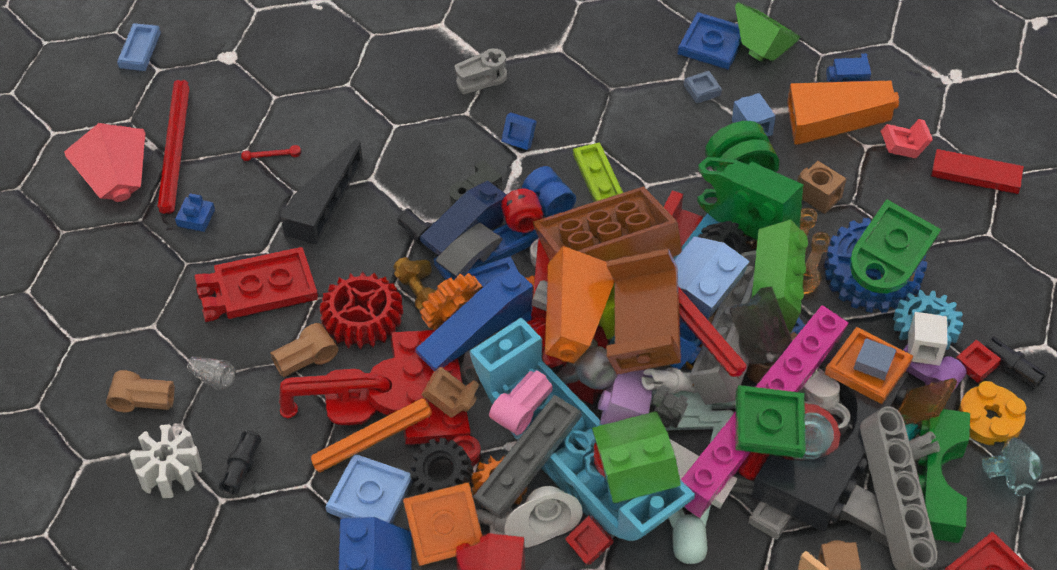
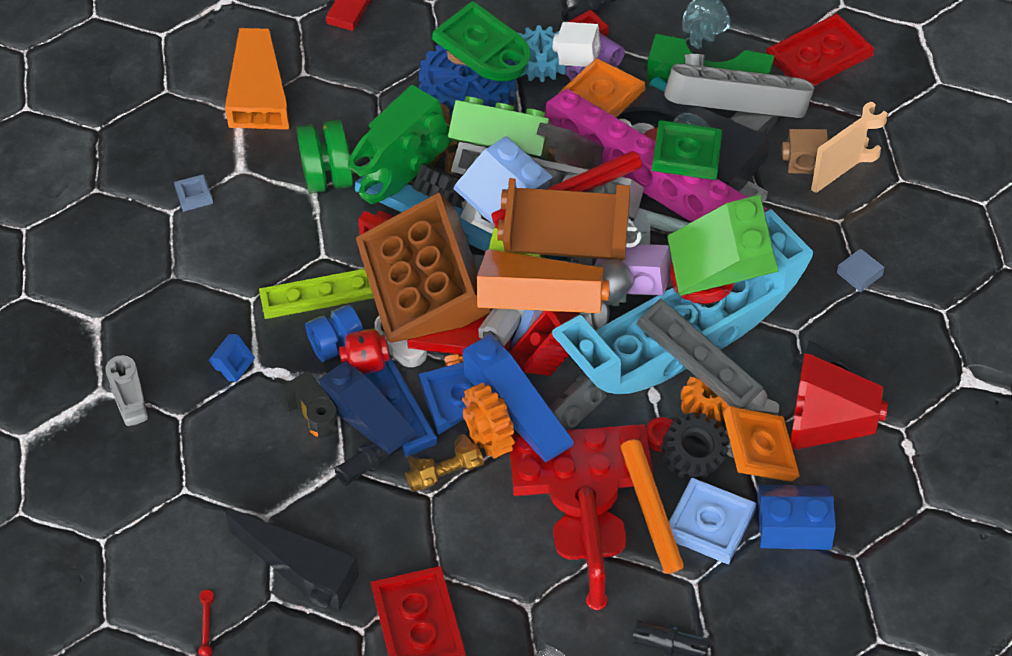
camera: 85 degrees left, 0 degrees up
(311, 346) = (522, 570): medium nougat piece -> none
(362, 301) = (469, 536): red gear -> none
(449, 393) = (613, 422): medium nougat bracket -> none
(469, 247) = (414, 405): dark grey slope -> none
(517, 408) = (650, 356): bright pink piece -> none
(544, 516) = (745, 353): white piece -> none
(589, 540) = (775, 330): red plate -> none
(668, 407) = (664, 221): dark grey hinge -> none
(711, 41) = (124, 177): blue tile -> none
(754, 109) = (255, 150): medium blue brick -> none
(763, 34) = (136, 126): bright green slope -> none
(821, 186) = (361, 107): medium nougat brick -> none
(849, 70) = (211, 64): blue brick -> none
(875, 359) = (604, 79): sand blue tile -> none
(907, 141) = (311, 32): coral bracket -> none
(926, 401) = (642, 59): clear orange piece -> none
(997, 399) = (638, 18): light orange plate -> none

